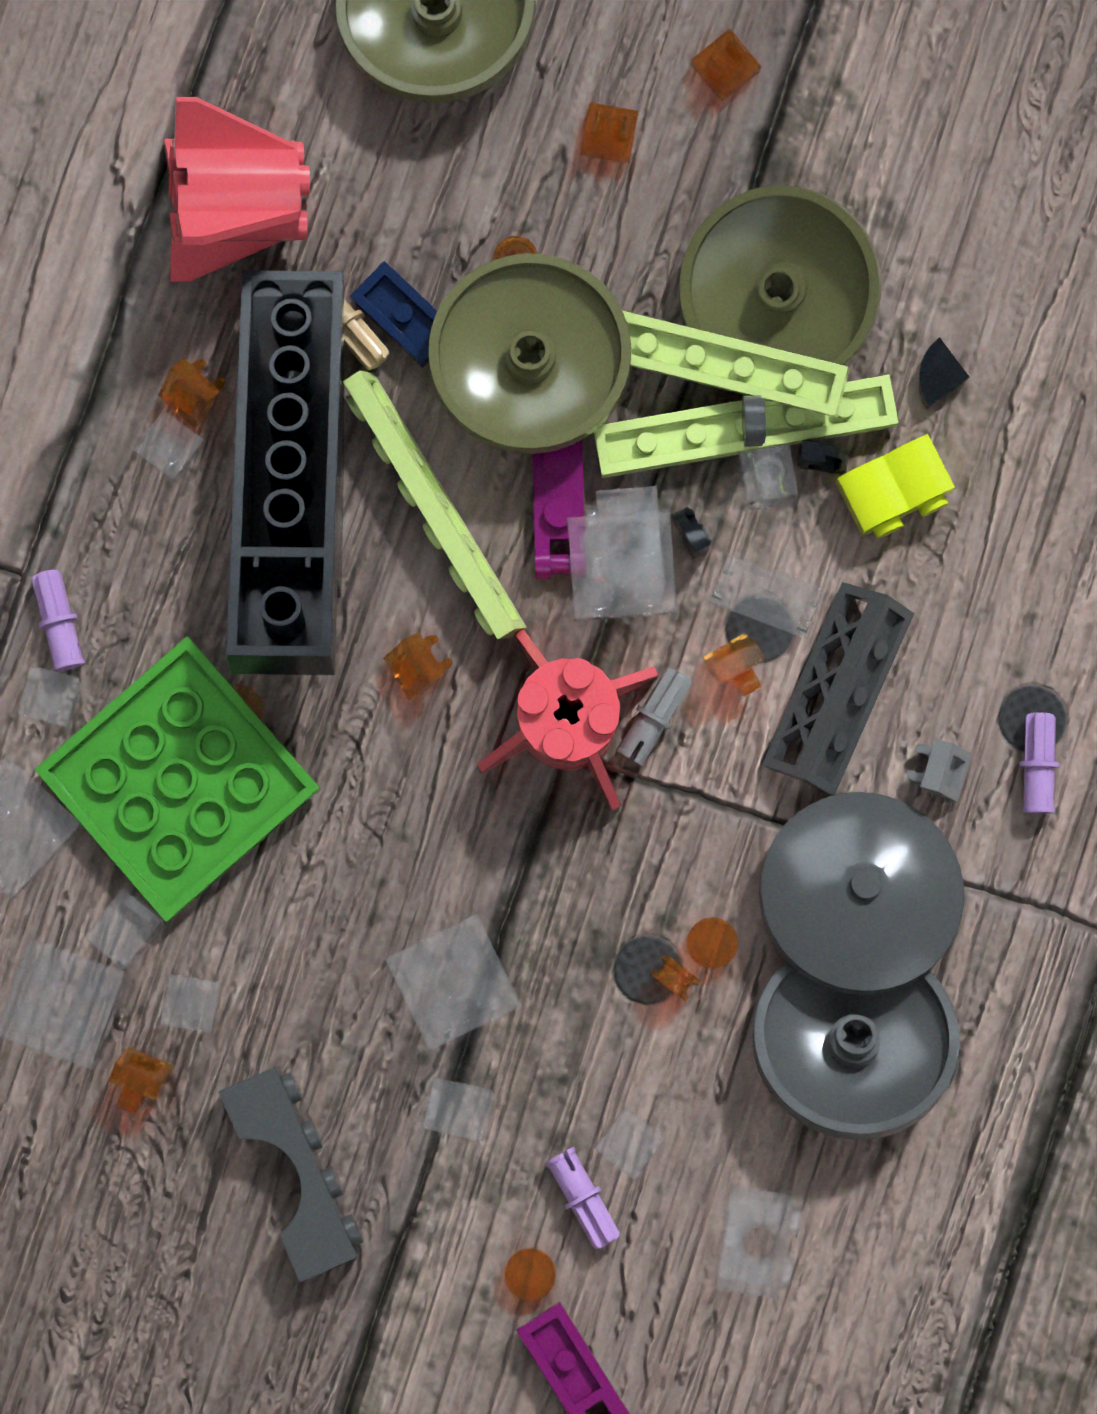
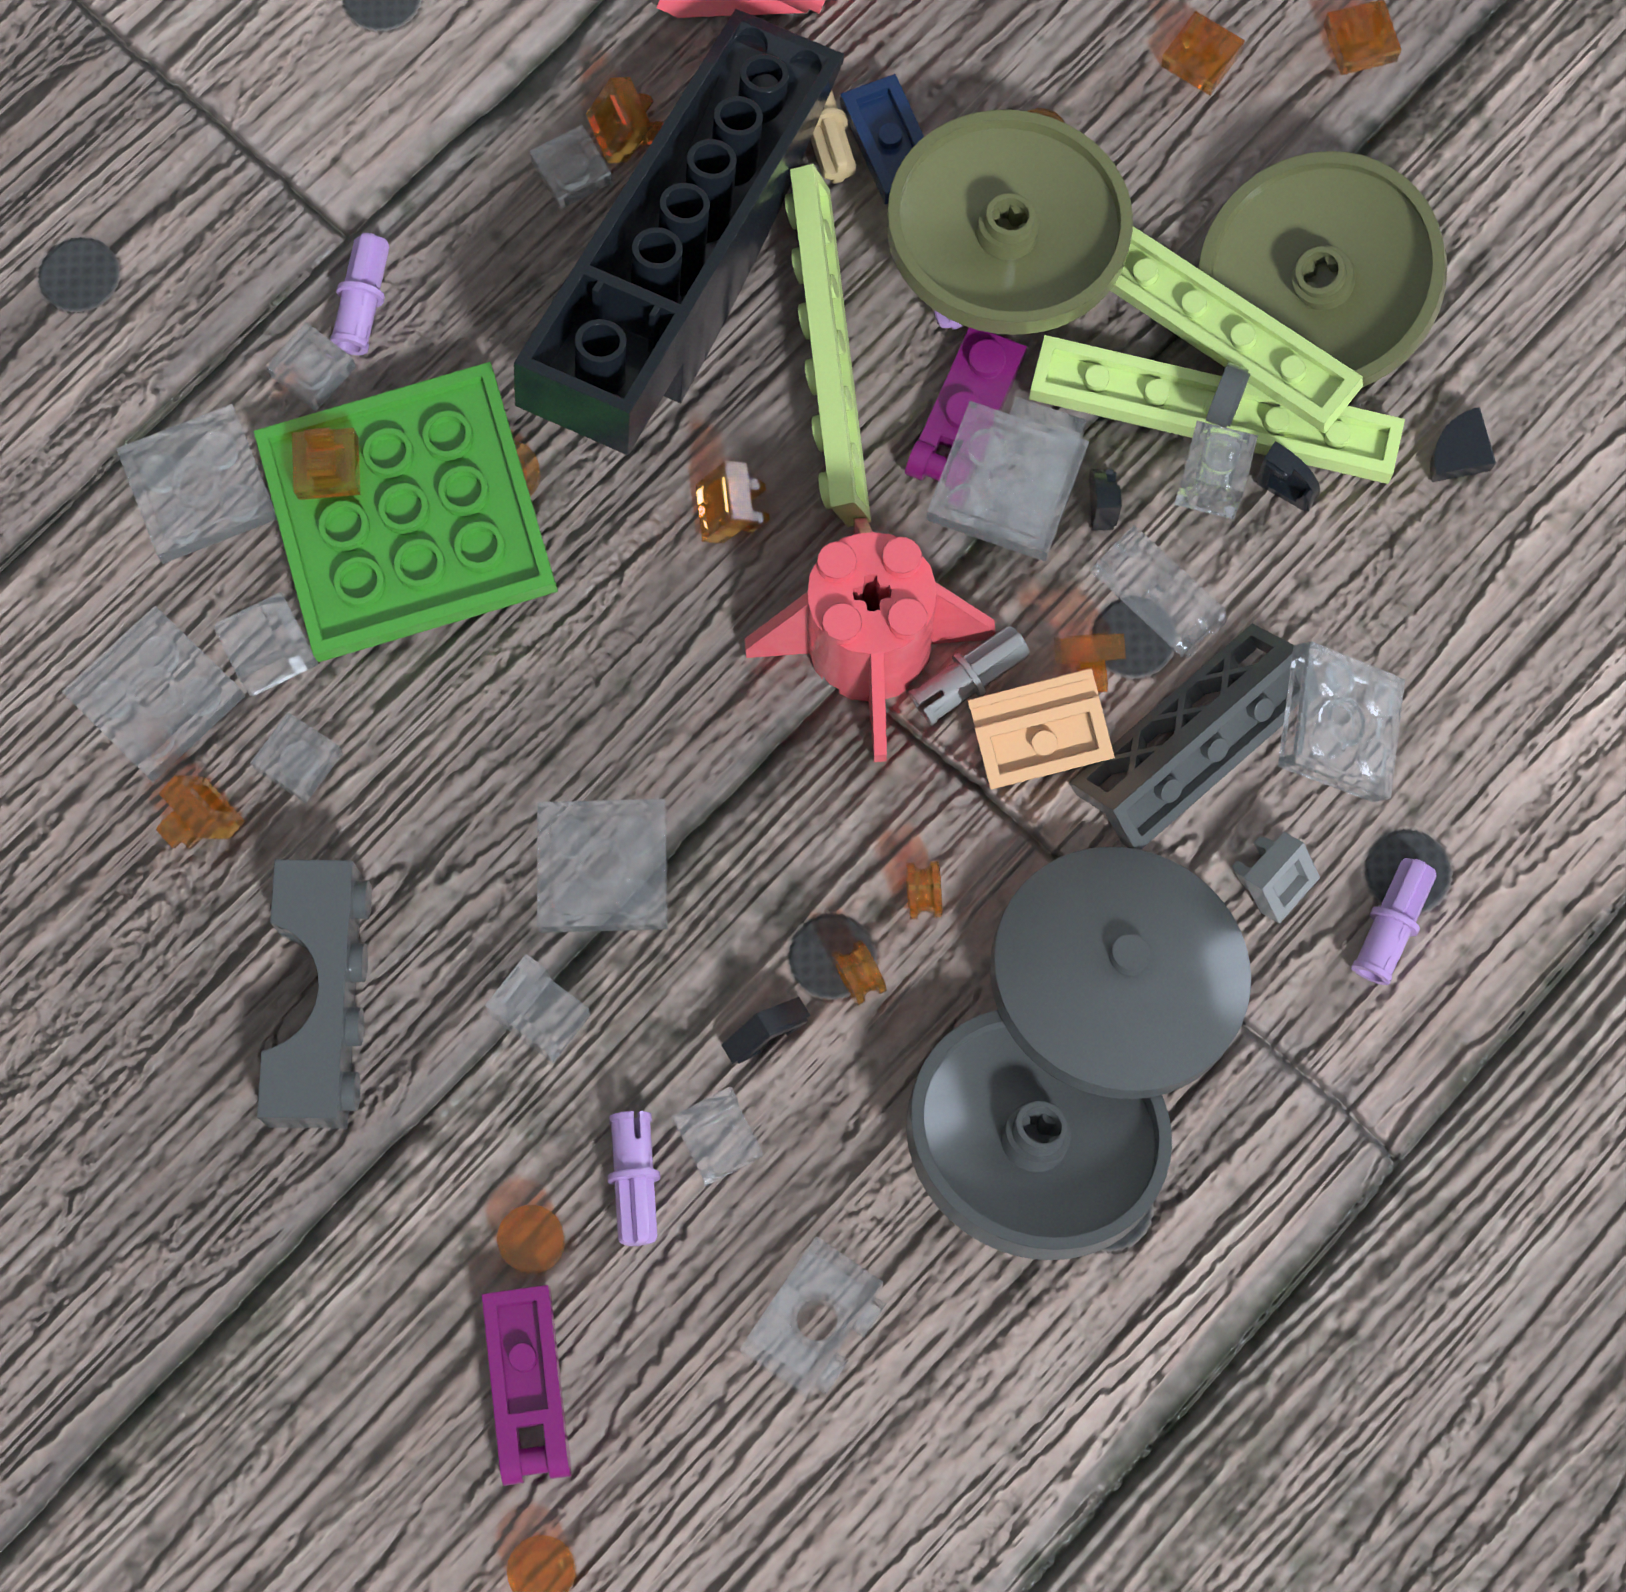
camera: 25 degrees right, 10 degrees down
(104, 773) = (325, 463): none -> clear orange tile
(627, 1049) = (763, 1026): none -> black tile
(694, 895) = (923, 890): none -> clear orange bush
(712, 943) = (920, 955): clear orange tile -> none
(725, 737) = (1041, 728): none -> light nougat plate
(896, 486) = (1359, 542): neon yellow brick -> none
(941, 635) = (1341, 722): none -> clear plate

